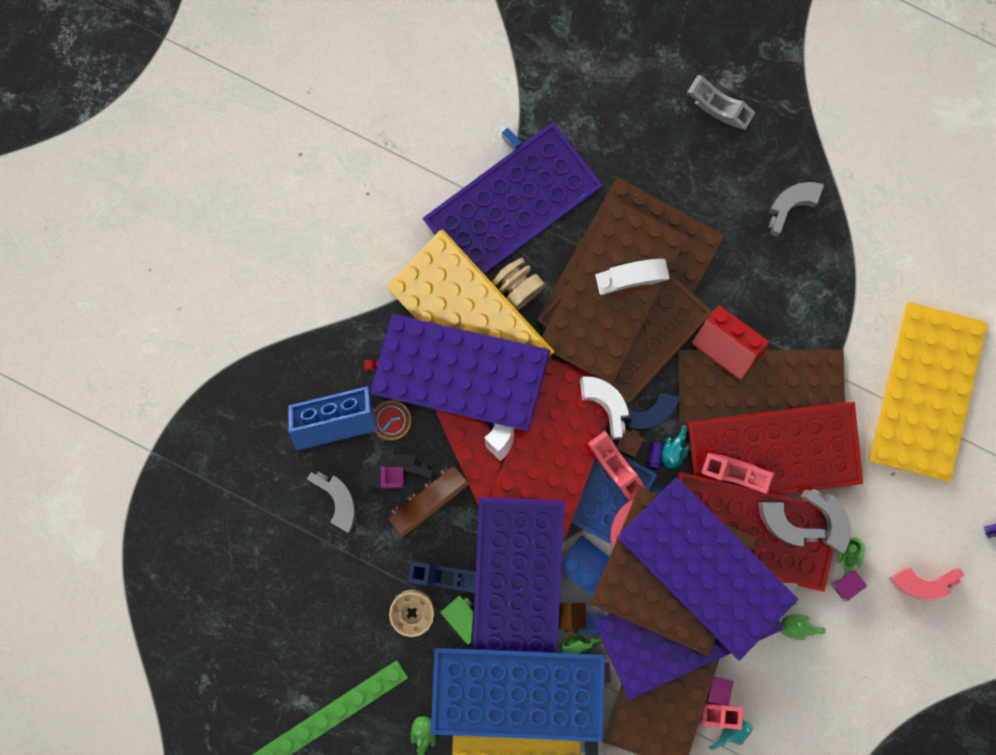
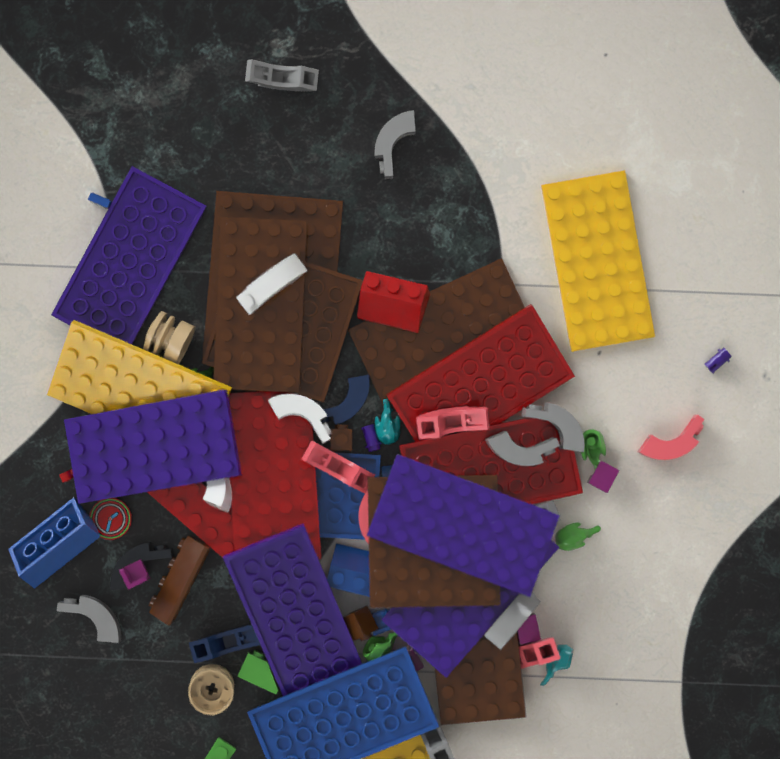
camera: 25 degrees left, 5 degrees up
(711, 674) = (512, 619): none -> light grey arch

